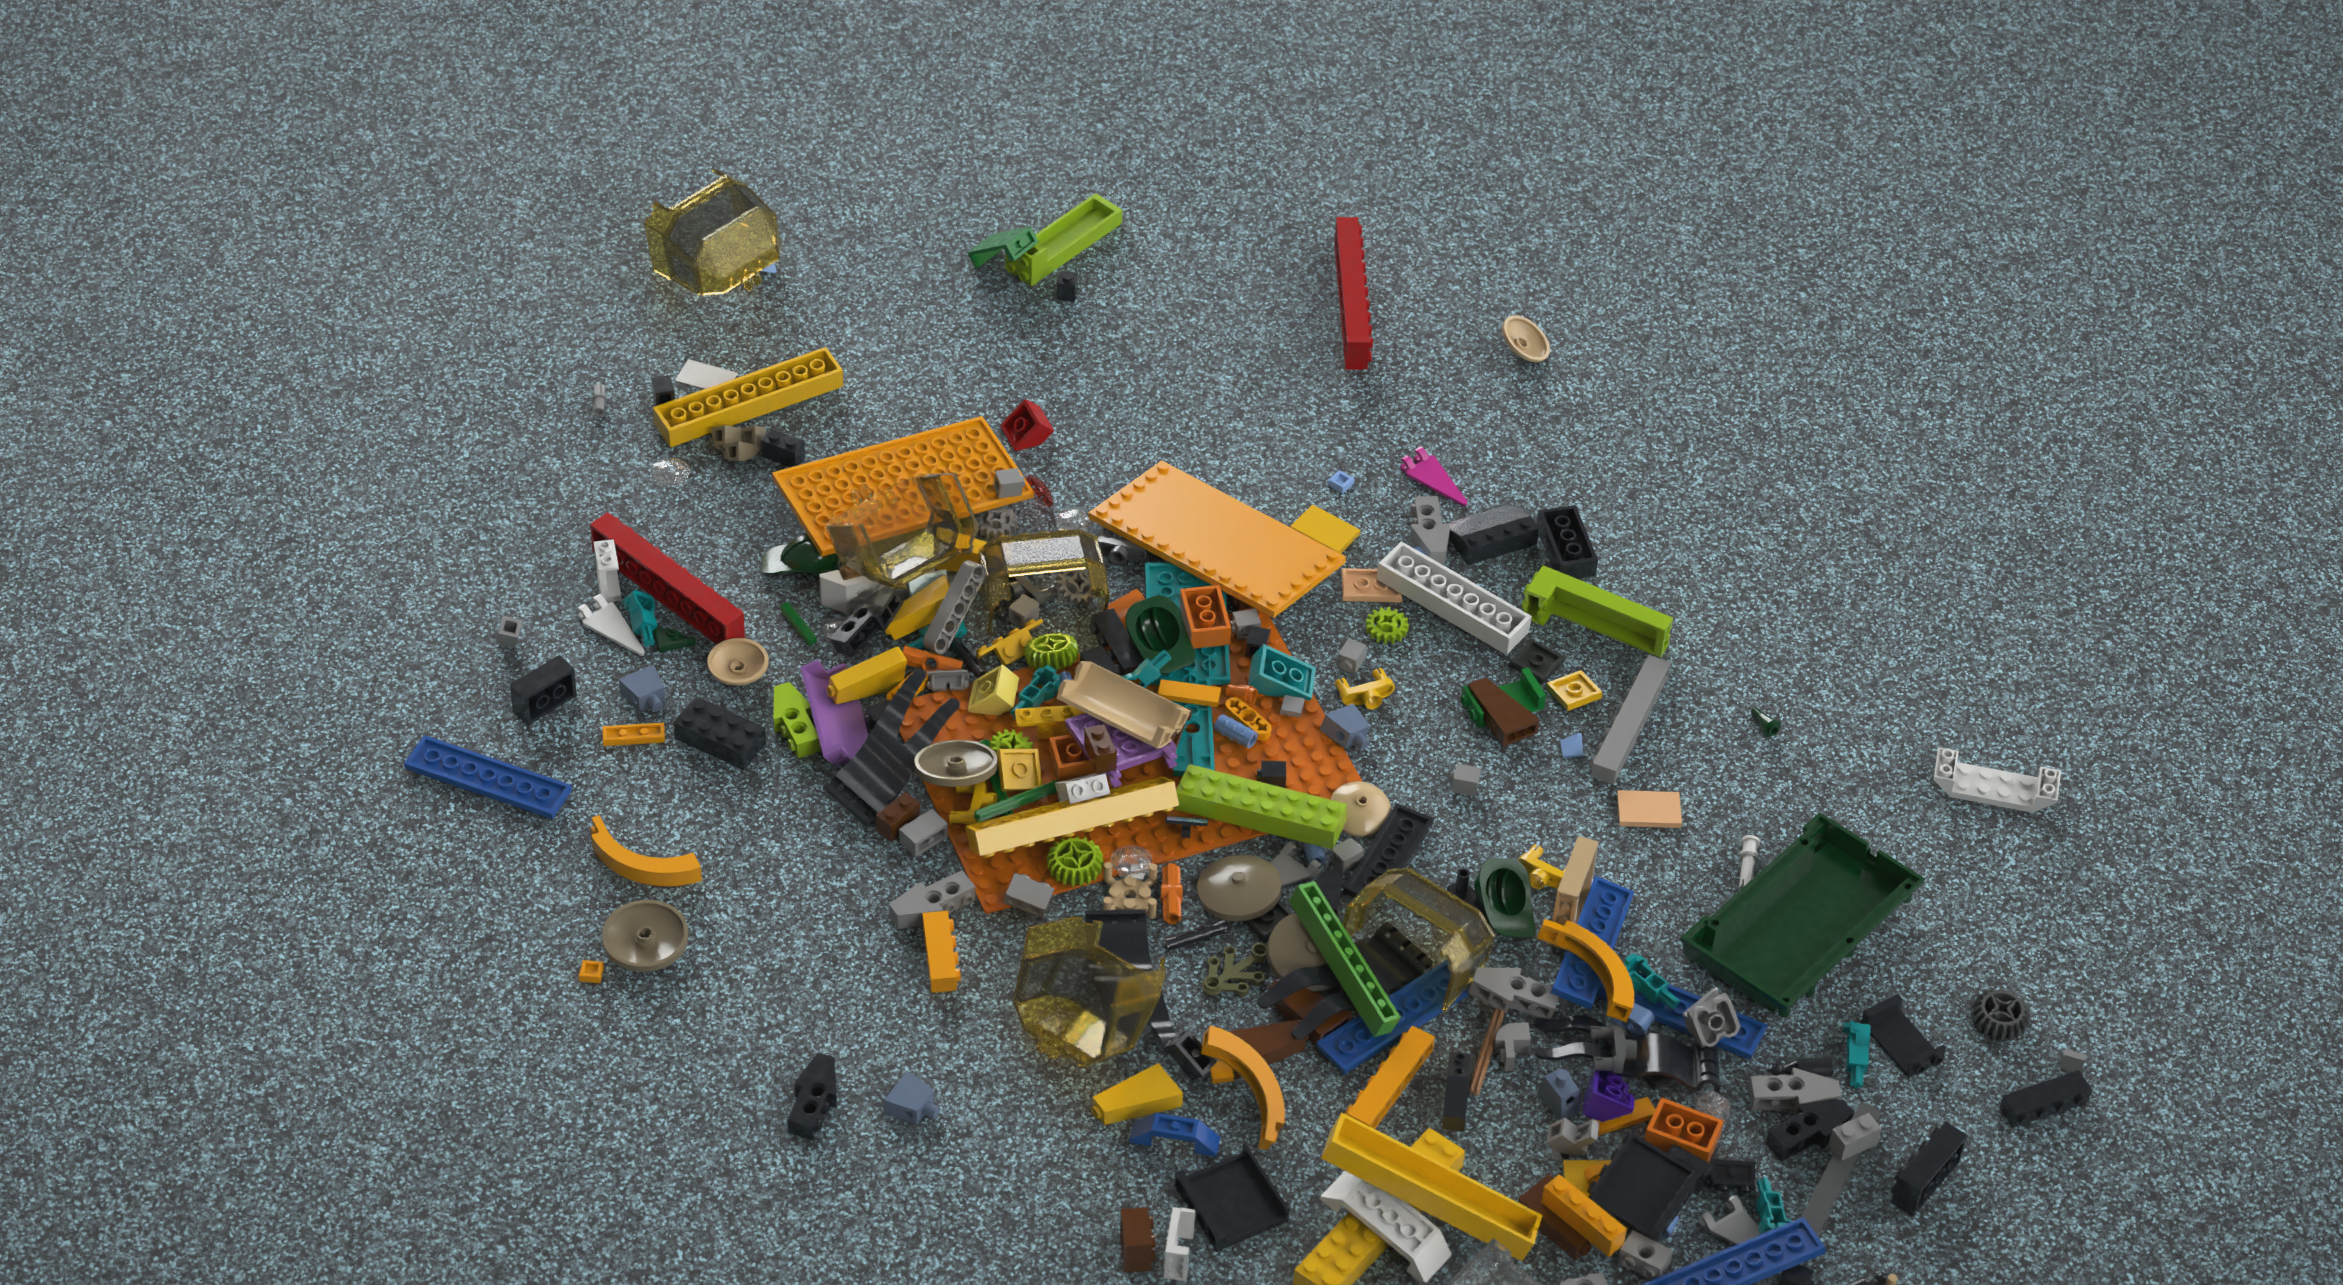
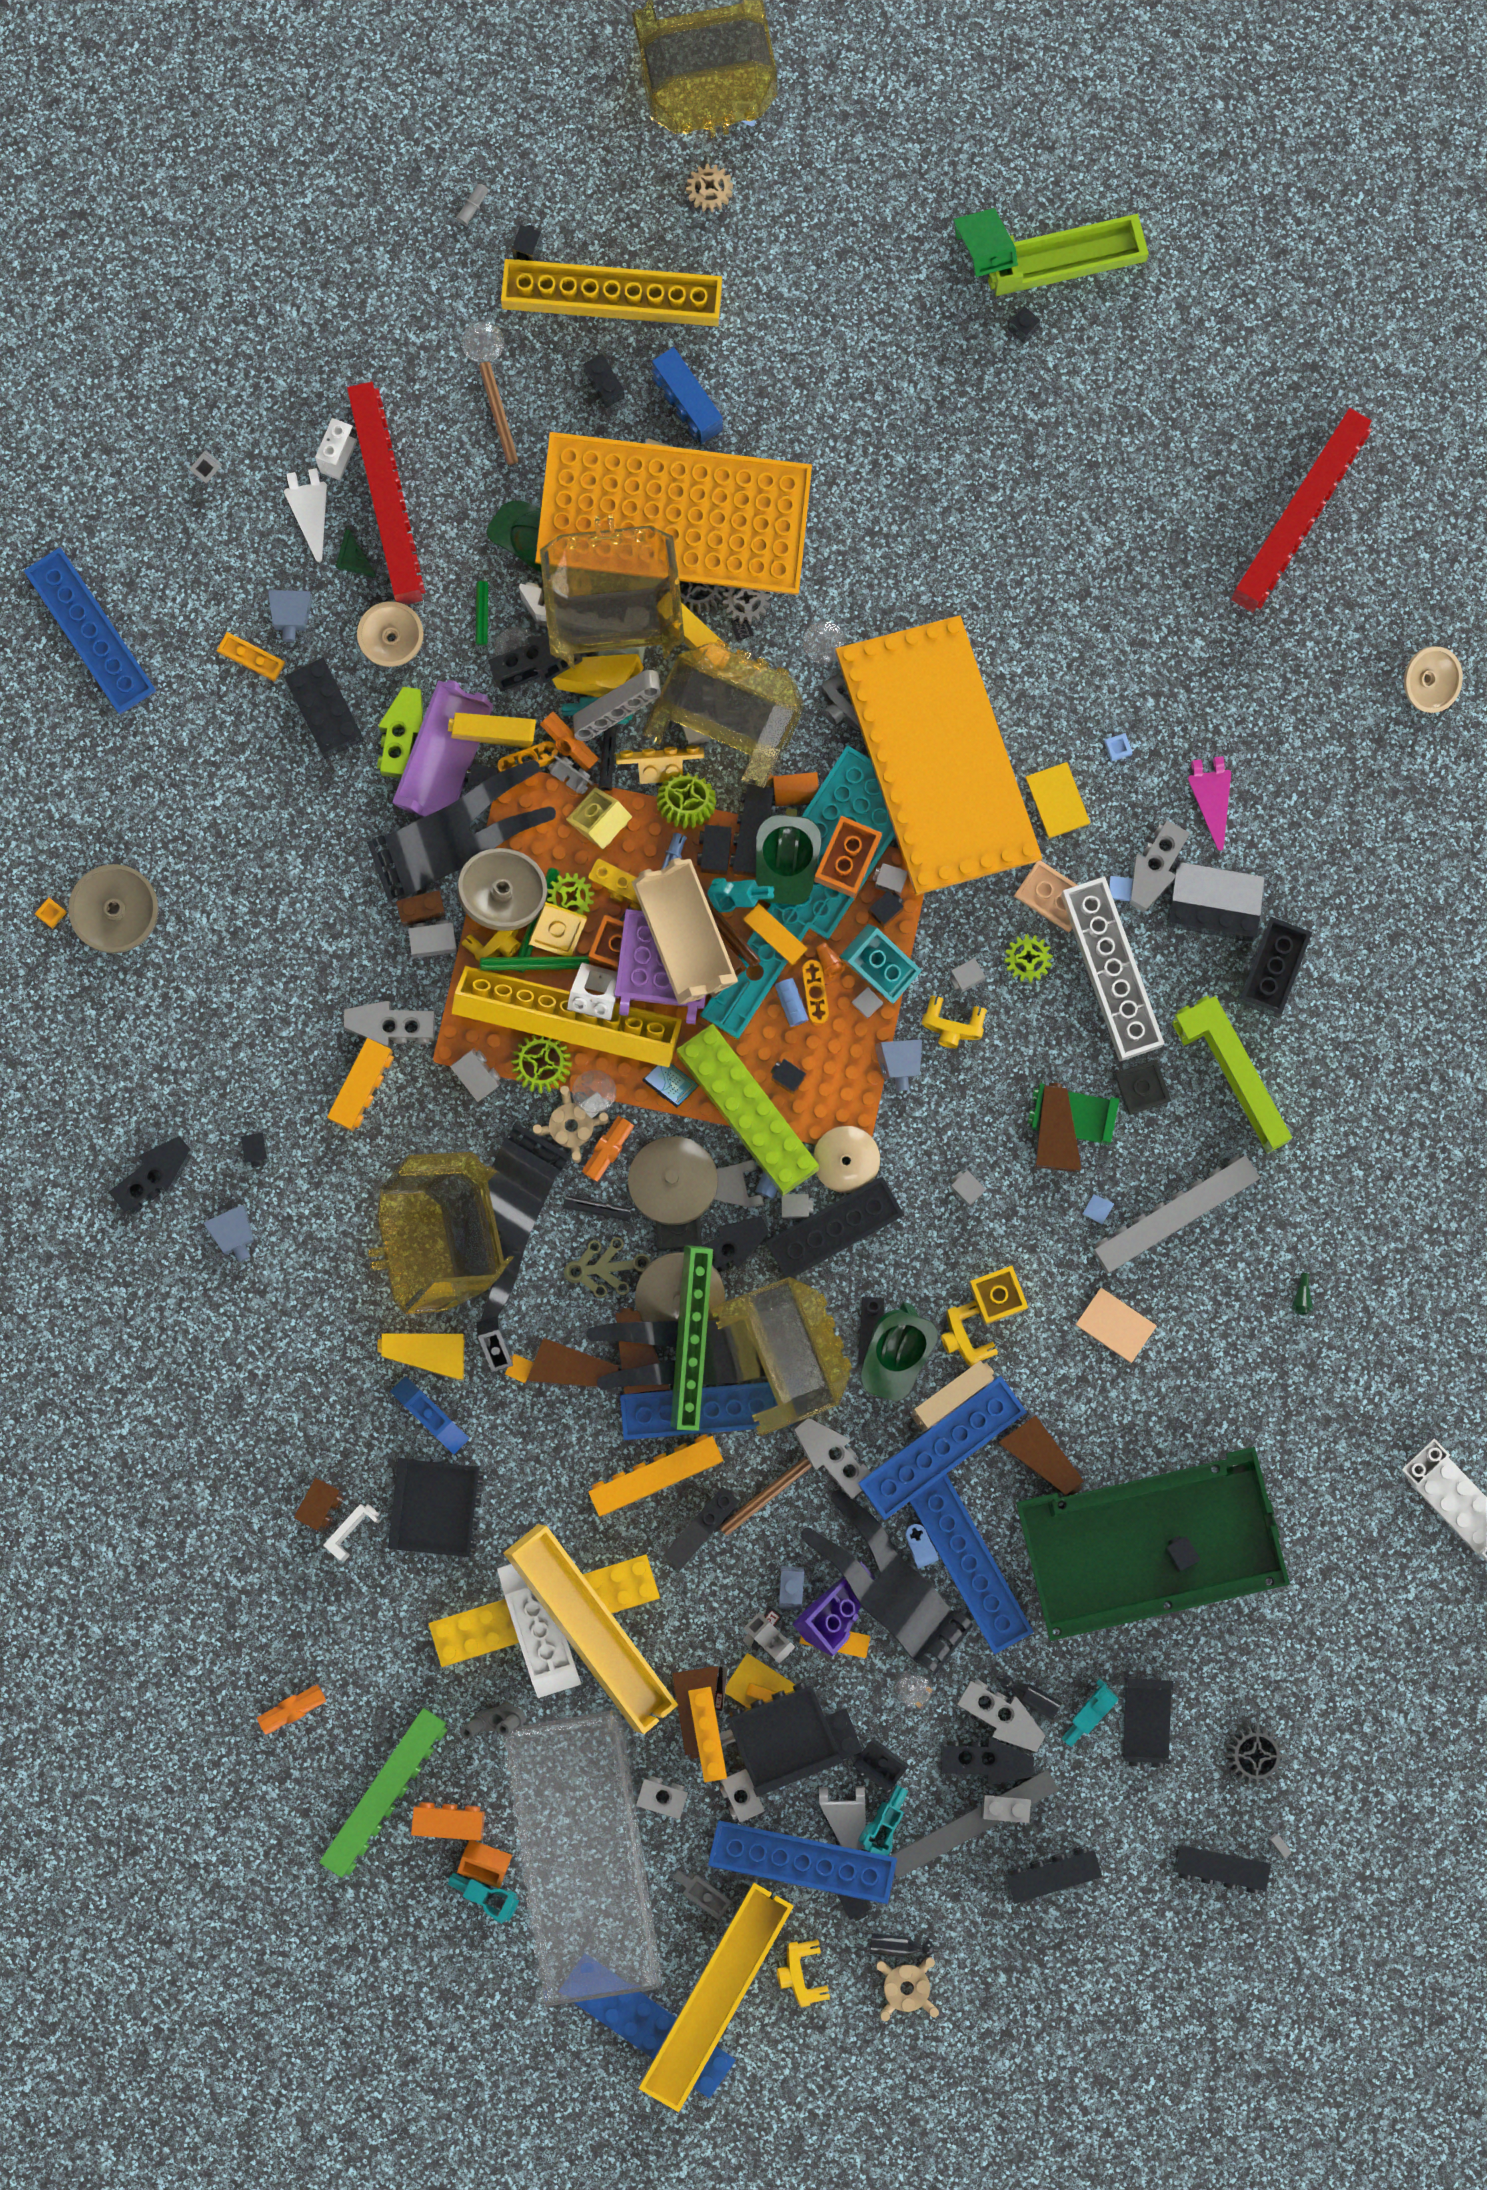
camera: 35 degrees right, 35 degrees up
(543, 690) = (192, 561): black brick -> none
(640, 868) = (180, 844): light orange arch -> none
(642, 615) = (338, 528): teal piece -> none
(703, 375) = (596, 231): white sticker -> none
(716, 505) = (498, 413): none -> medium nougat axle
(738, 443) = (567, 346): dark tan brick -> none
(773, 313) = (711, 197): none -> tan gear
(852, 423) = (687, 396): none -> blue brick
(887, 1035) = (255, 1150): none -> black brick
(1008, 483) = (774, 574): light grey brick -> none
(1026, 426) = (858, 492): red slope -> none
(1032, 696) = (629, 844): teal piece -> none
(1041, 489) = (812, 587): clear red dish -> none
(1100, 749) = (624, 974): reddish brown brick -> none
(1256, 1072) = (526, 1370): light orange arch -> none
(1510, 1040) = (794, 1499): light grey brick -> none
(1548, 828) = (998, 1295): none -> yellow brick
(1574, 690) = (1150, 1145): yellow plate -> none
(1600, 958) = (926, 1486): light orange arch -> none
(1621, 1048) = (874, 1584): dark grey connector -> none
(1654, 986) = (957, 1533): teal piece -> none
(1667, 911) = (1041, 1454): none -> reddish brown slope
(1685, 1128) = (868, 1698): orange brick -> none
(1712, 1018) = (976, 1605): light grey piece -> none
(1748, 857) = (1163, 1439): white pin -> none
(1829, 910) = (1182, 1553): none -> black brick

